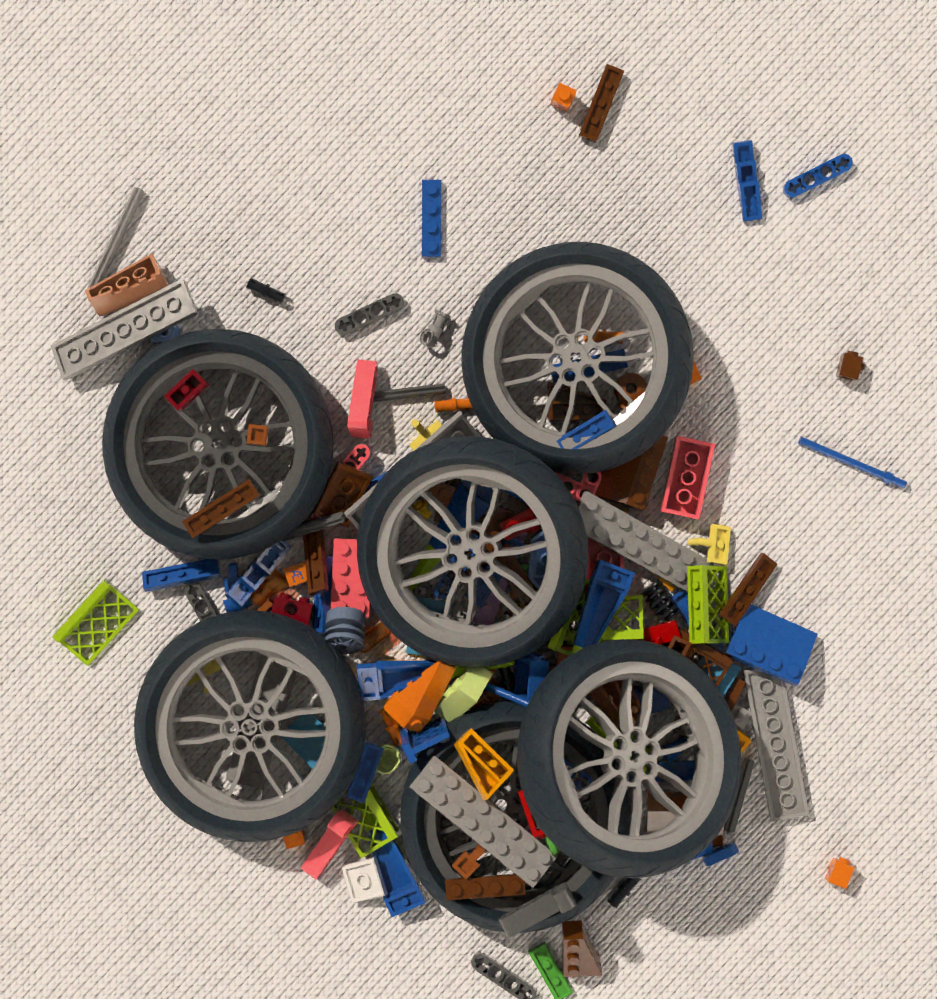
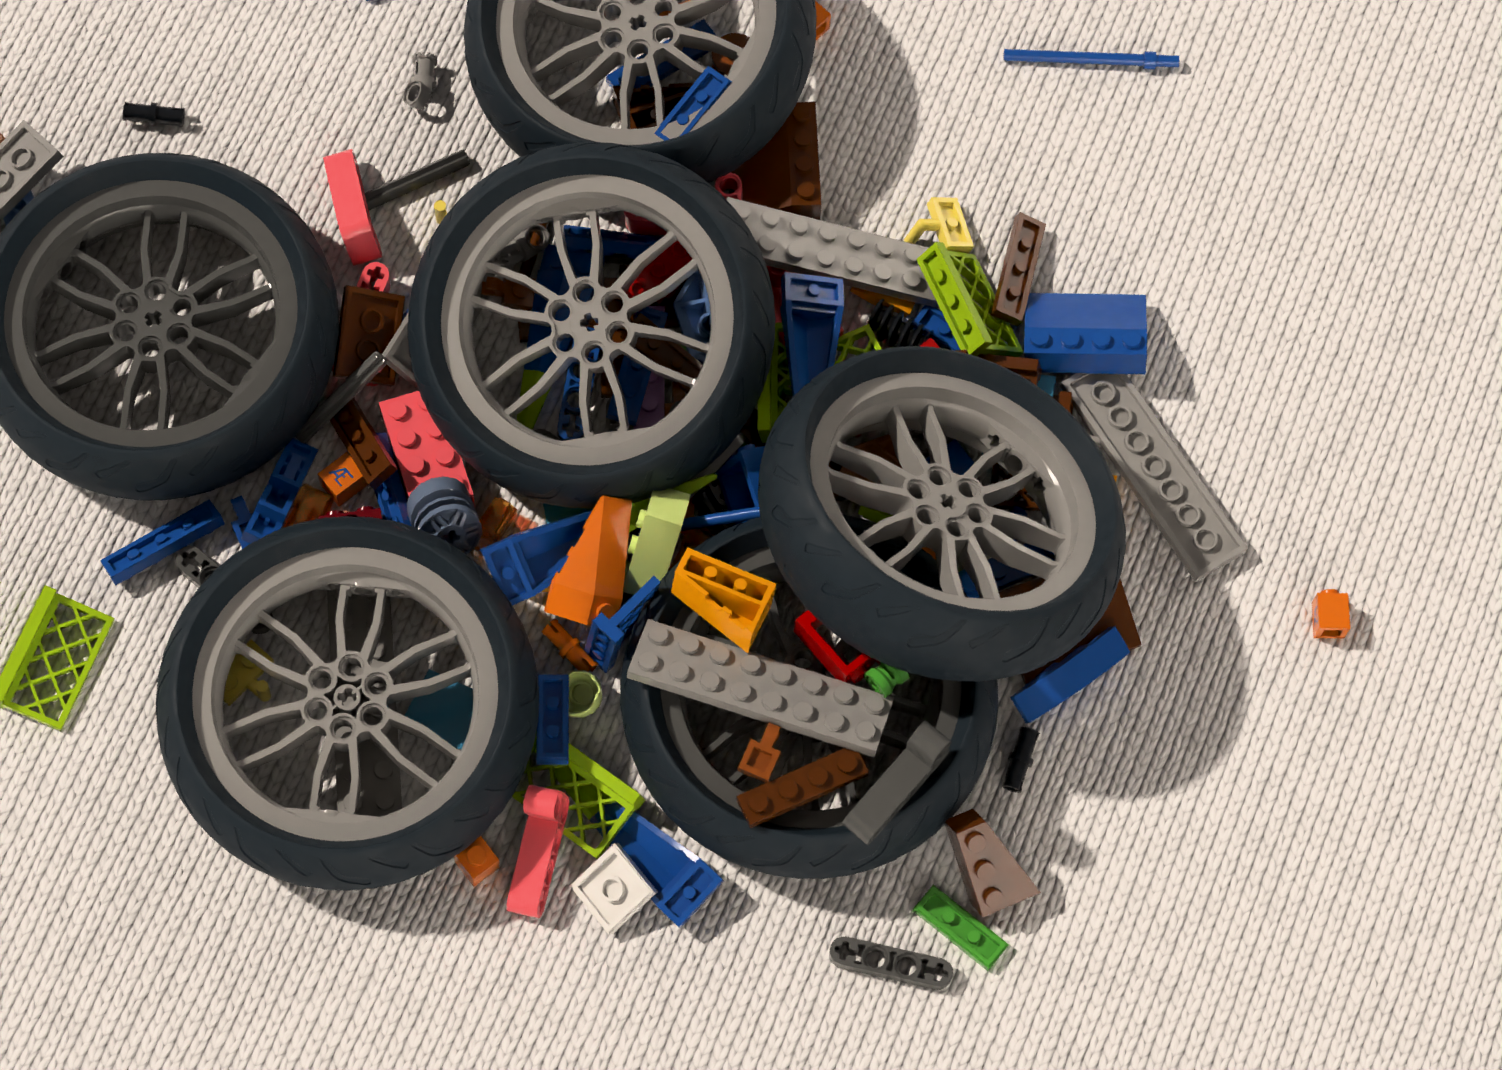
camera: 25 degrees left, 20 degrees down
(186, 390) = (82, 235): dark red brick -> none
(221, 508) = (191, 383): reddish brown plate -> none
(257, 435) = (210, 267): dark orange tile -> none
(370, 316) = (321, 99): dark grey beam -> none
(420, 506) = (498, 328): yellow plate -> none
(452, 405) = (472, 177): orange pin -> none
(687, 477) = (865, 150): coral brick -> none
(720, 854) = (1142, 653): blue beam -> none
(746, 770) = (1134, 567): dark grey axle -> none

